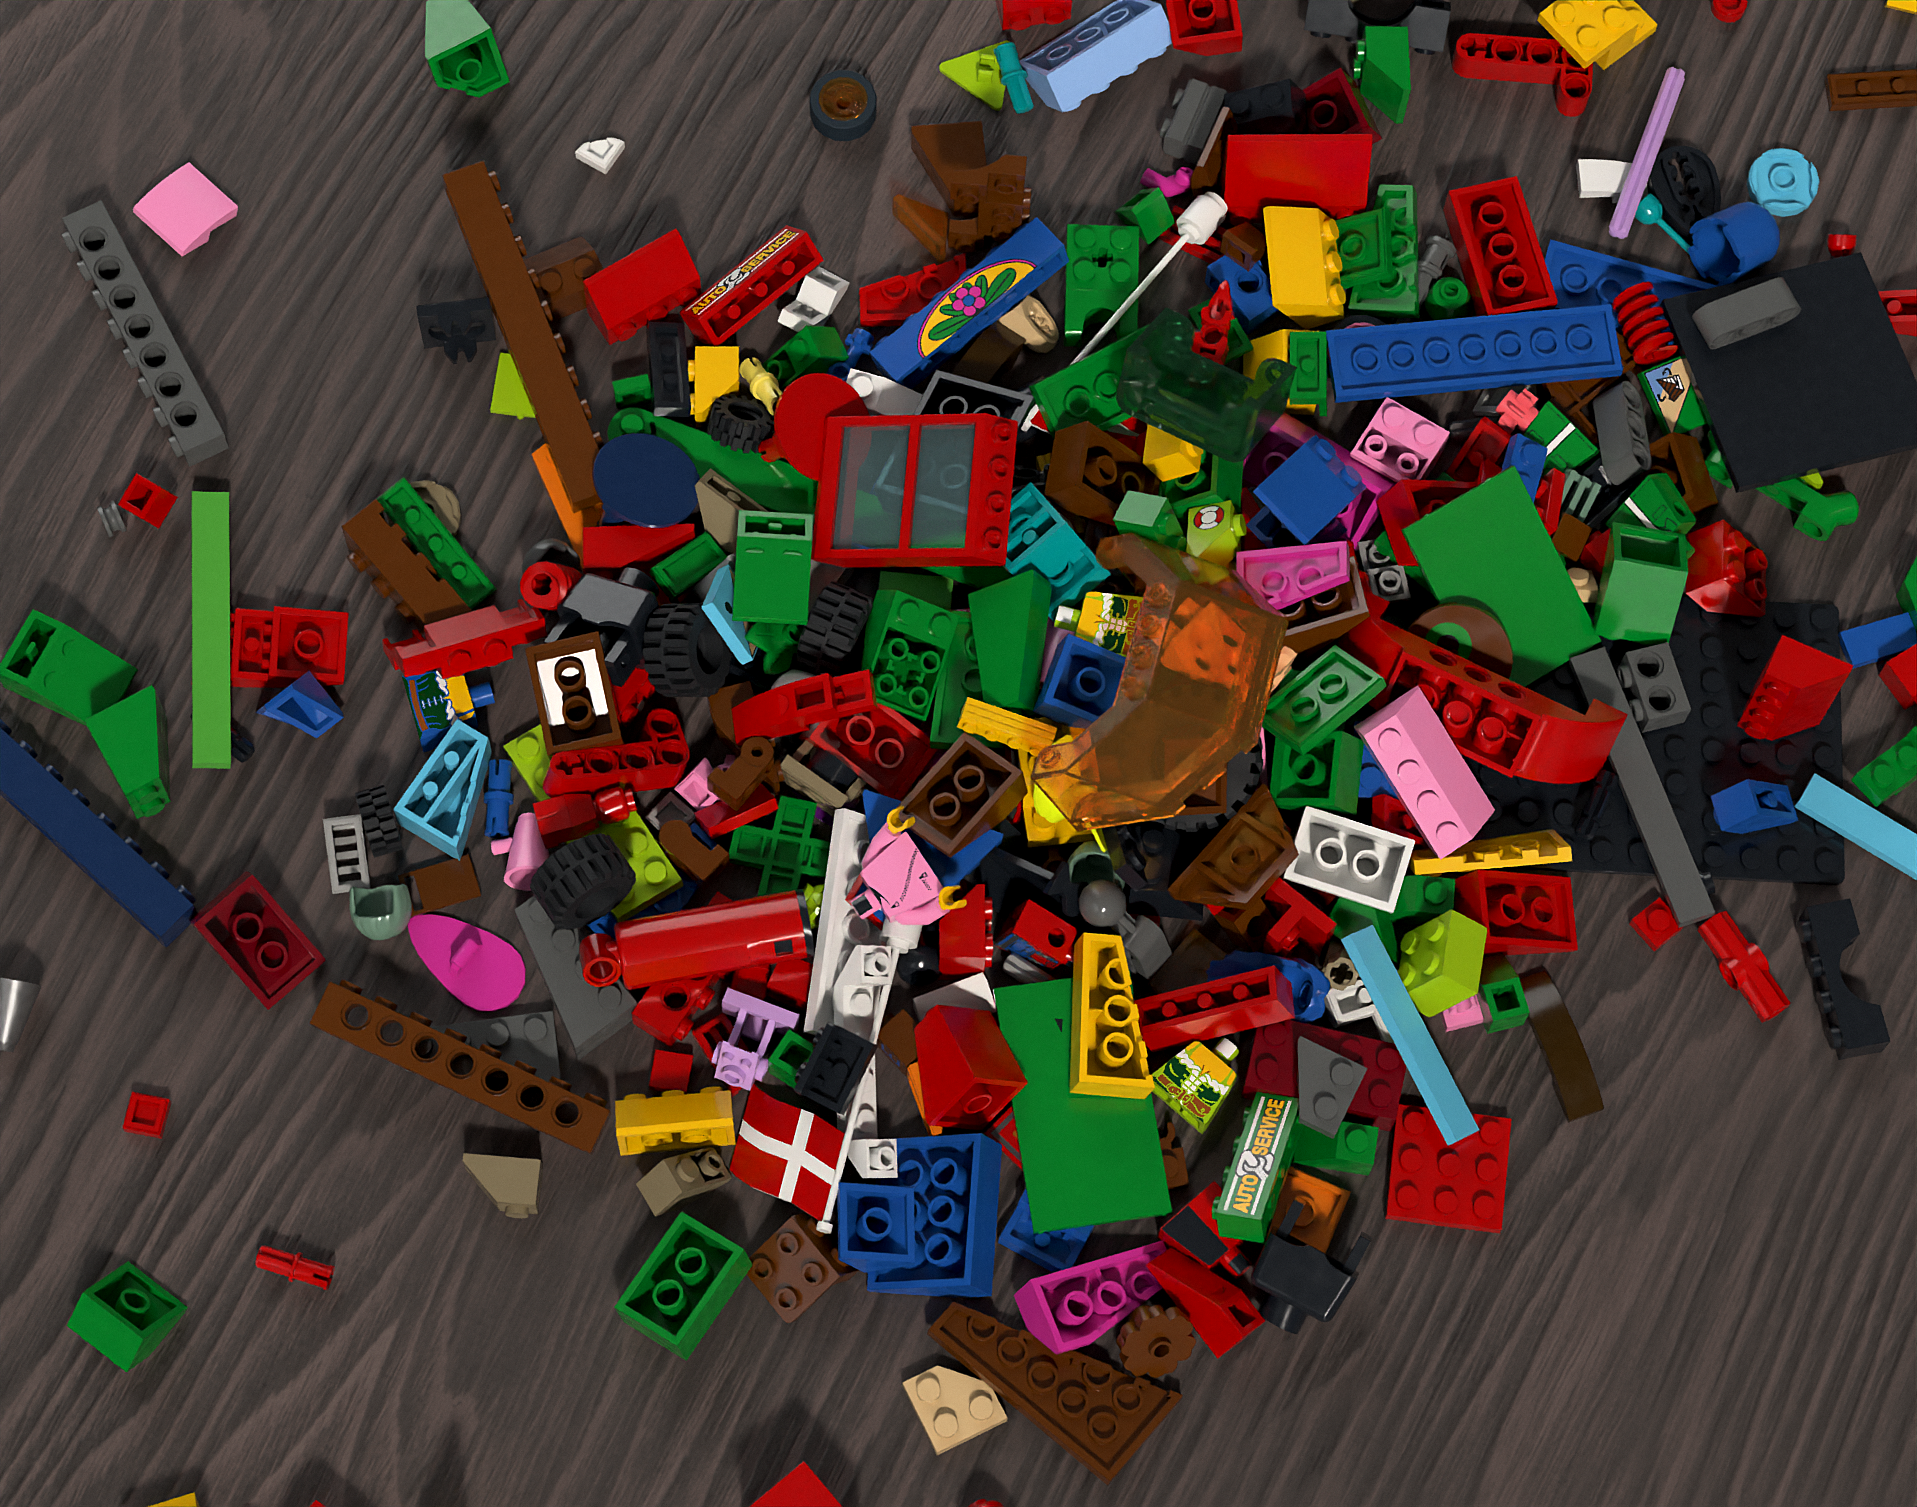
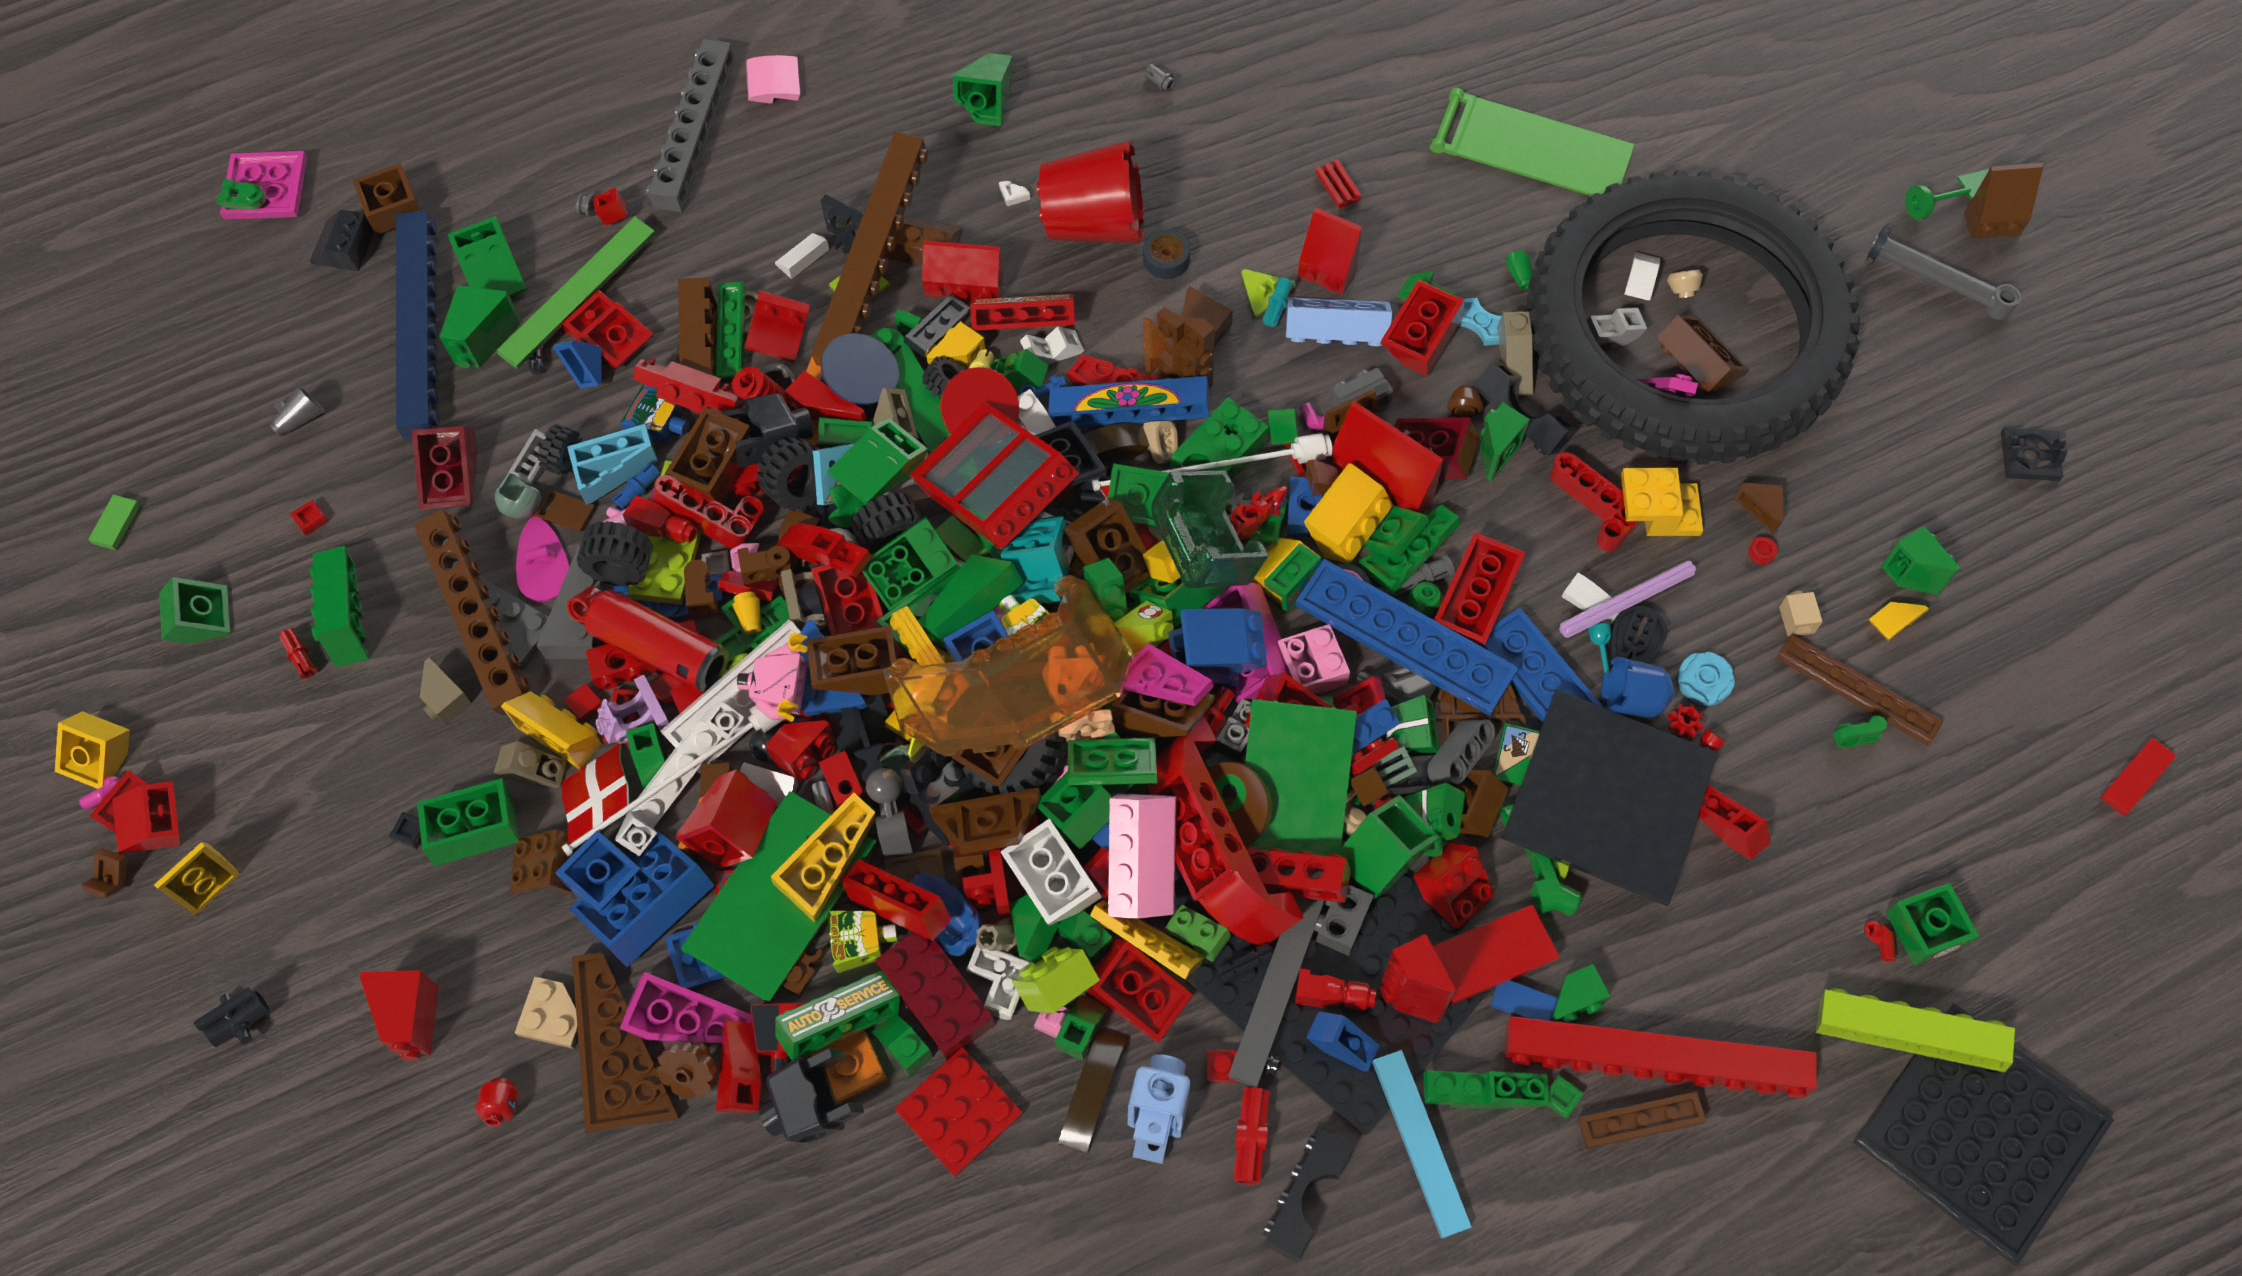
camera: 45 degrees right, 5 degrees down
(294, 1179) = (337, 606): none -> green wedge
(426, 397) = (803, 255): none -> white slope
(487, 501) = (777, 326): none -> red bracket
(614, 1349) = (407, 831): none -> black tile
(723, 94) = (1093, 196): none -> red cone
(770, 838) = (748, 611): none -> yellow cone
(834, 1067) = (651, 761): black bracket -> none
(1269, 109) = (1407, 414): black slope -> none
(1309, 52) = (1465, 402): none -> reddish brown cone
(1325, 1086) = (915, 998): dark grey wing -> none
(1410, 1035) = (995, 1008): medium azure tile -> none
(1517, 411) = (1403, 688): coral gear -> none
(1529, 808) = (1198, 931): none -> bright green plate
(1593, 683) = (1328, 887): none -> red brick
(1641, 324) = (1530, 694): red piece -> none
(1647, 990) = (1158, 1105): none -> light blue piece
(1704, 768) = (1331, 992): none -> red piece
(1746, 313) = (1601, 733): dark grey beam -> none
(1802, 241) = (1678, 725): none -> red gear
(1819, 46) = (1800, 613): none -> tan brick
(1821, 601) = (1496, 953): none -> red tile

